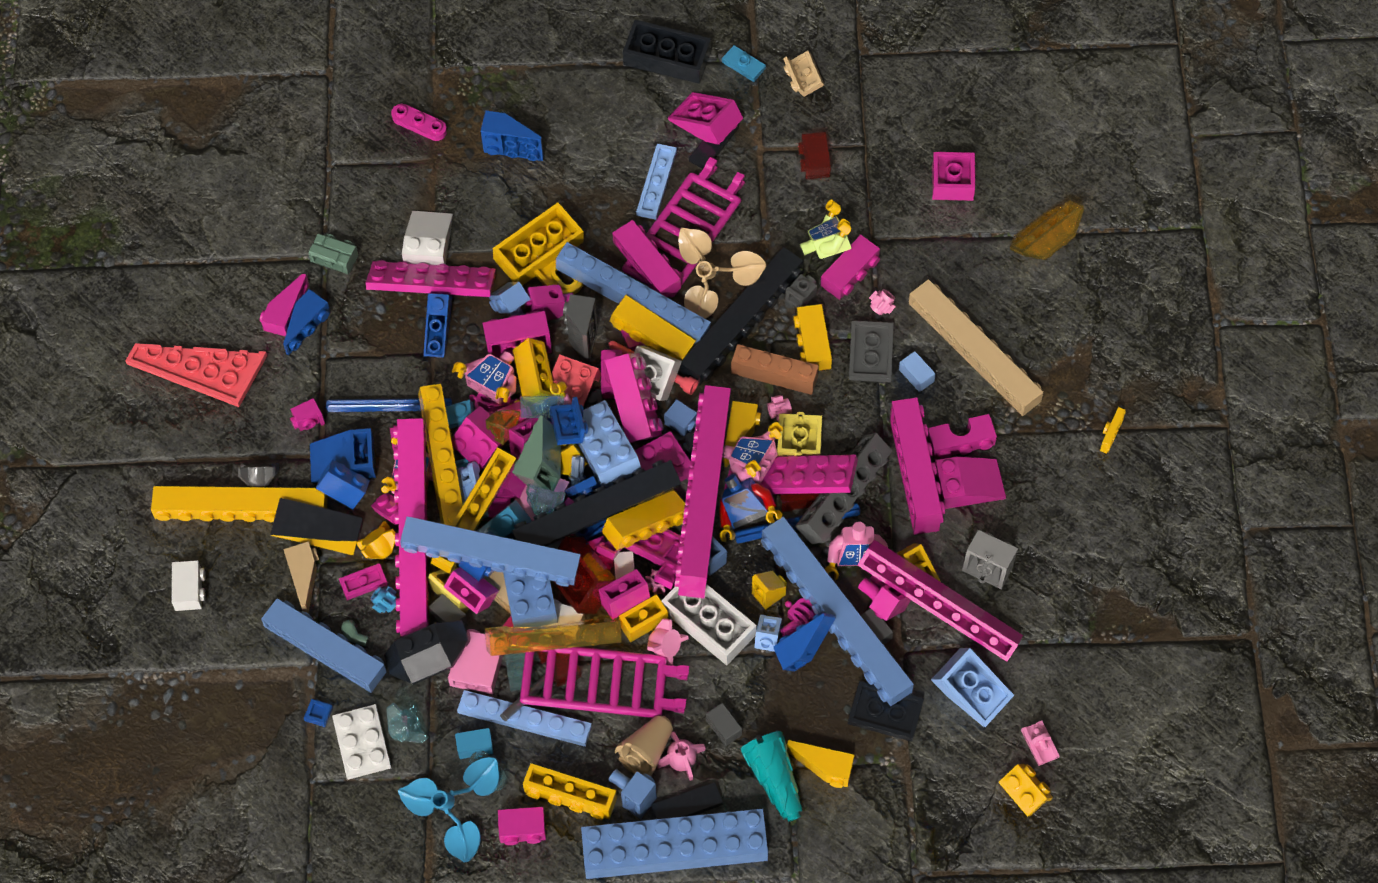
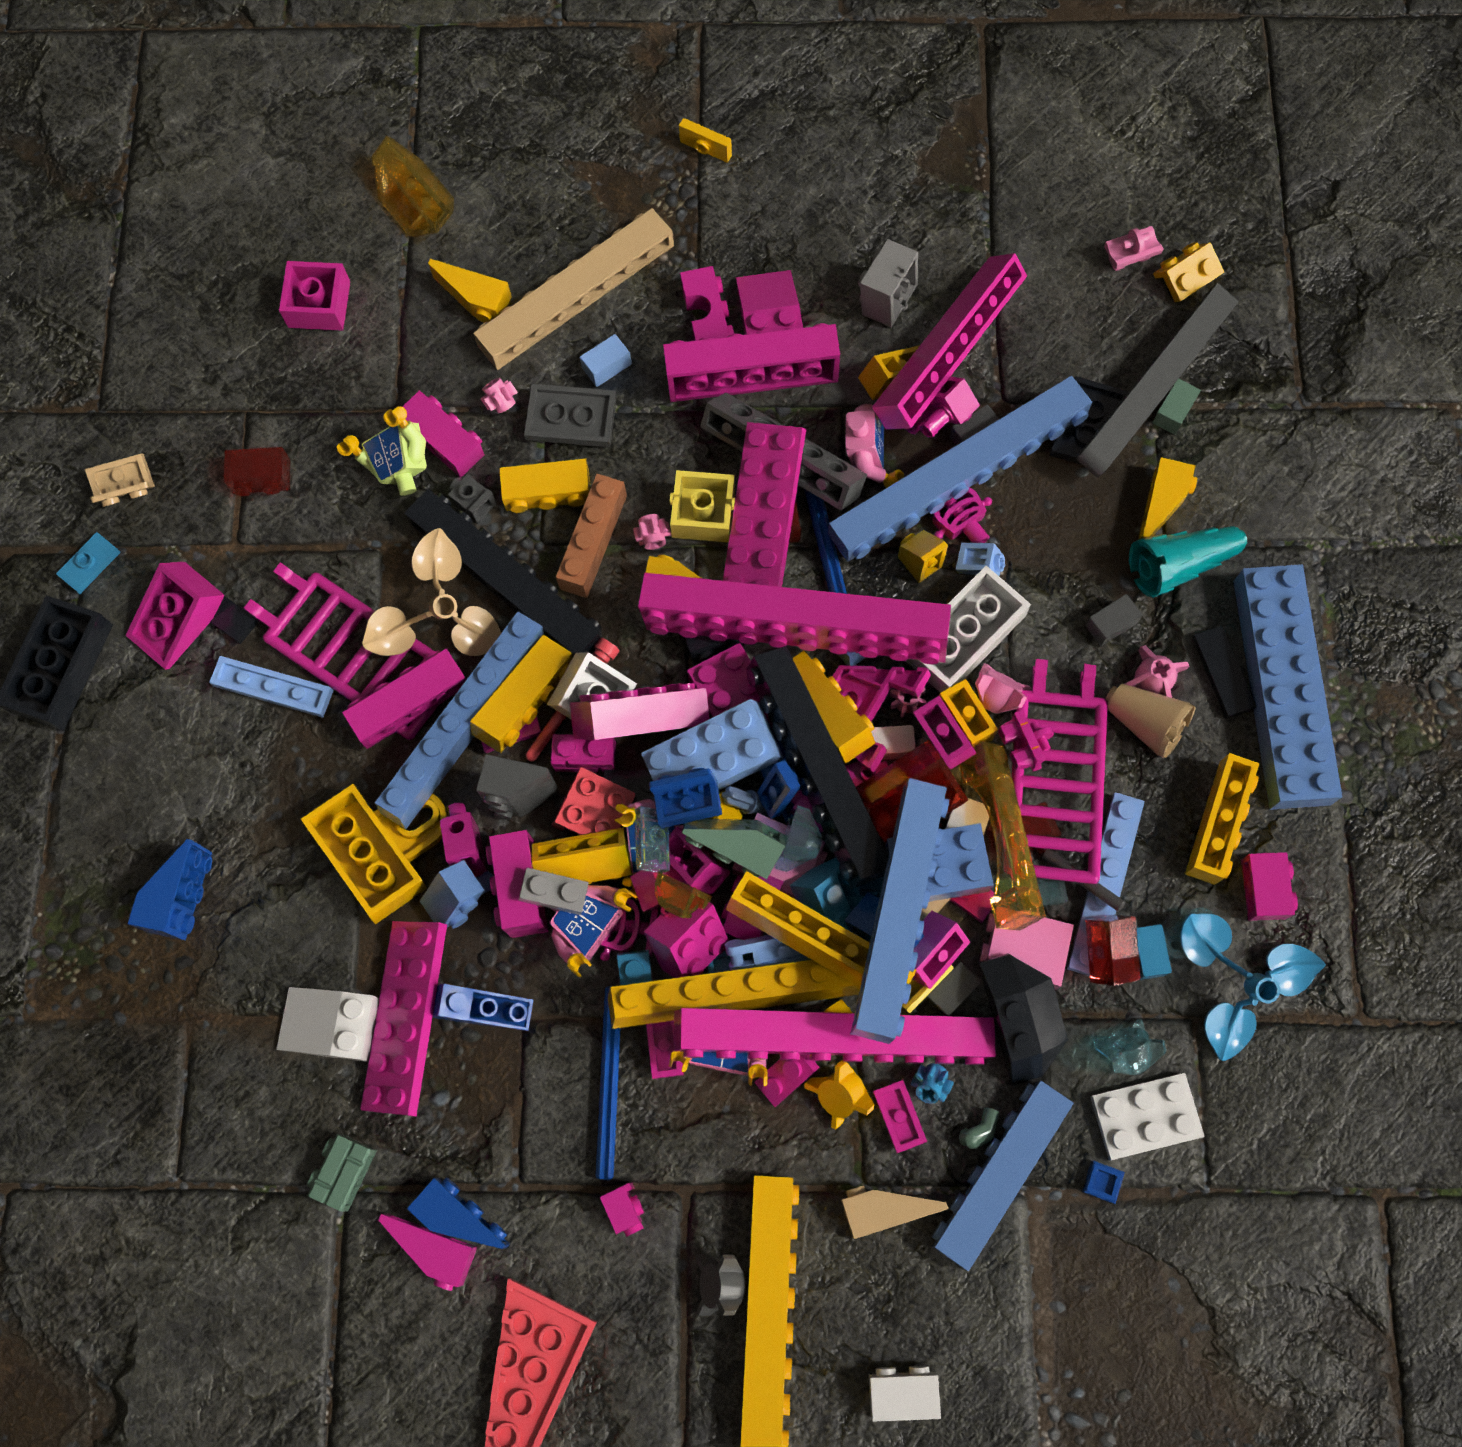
camera: 85 degrees left, 10 degrees up
(317, 525) = (813, 1191): black sticker -> none
(342, 484) = (750, 1147): blue brick -> none
(350, 448) = (697, 1151): blue slope -> none
(422, 127) = (130, 1031): dark pink plate -> none
(473, 713) = (1112, 949): none -> clear red brick
(507, 351) = (553, 891): none -> light grey plate
(624, 655) = (1031, 743): none -> dark pink hips
(636, 792) = (1223, 729): medium blue brick -> none
(680, 418) = (659, 661): medium blue brick -> none
(744, 503) = (803, 561): torso -> none
(753, 455) = (738, 555): torso -> none
(801, 646) = (1011, 518): blue slope -> none
(903, 774) = (1176, 406): none -> sand green piece
(923, 756) = (1156, 380): none -> dark grey beam
(965, 280) = (476, 292): none -> yellow slope
(972, 686) = (1054, 322): light blue slope -> none

